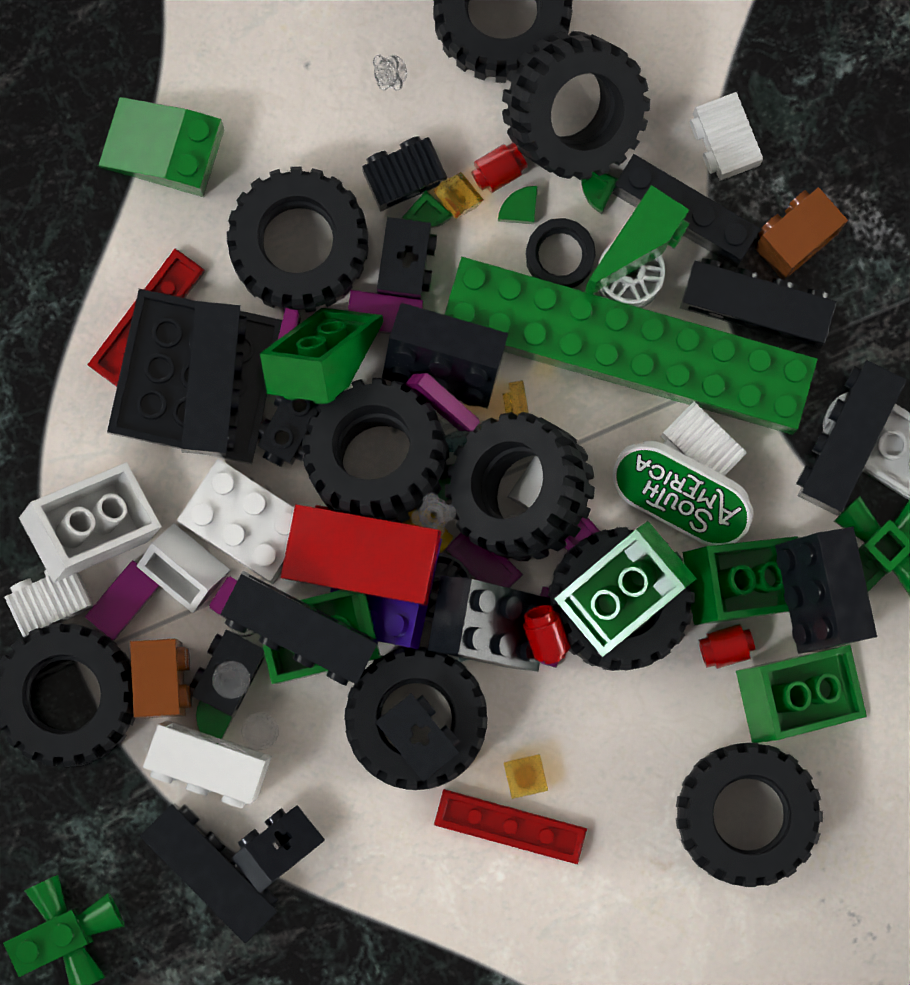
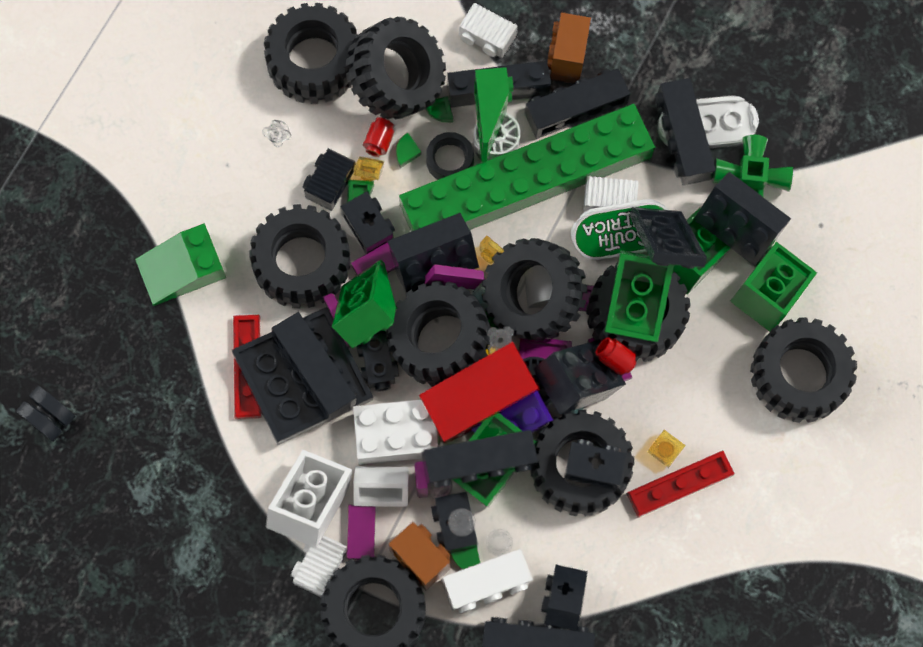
camera: 40 degrees left, 10 degrees down
(710, 549) = (668, 237): none -> black plate
(726, 646) = (713, 292): red brick -> none

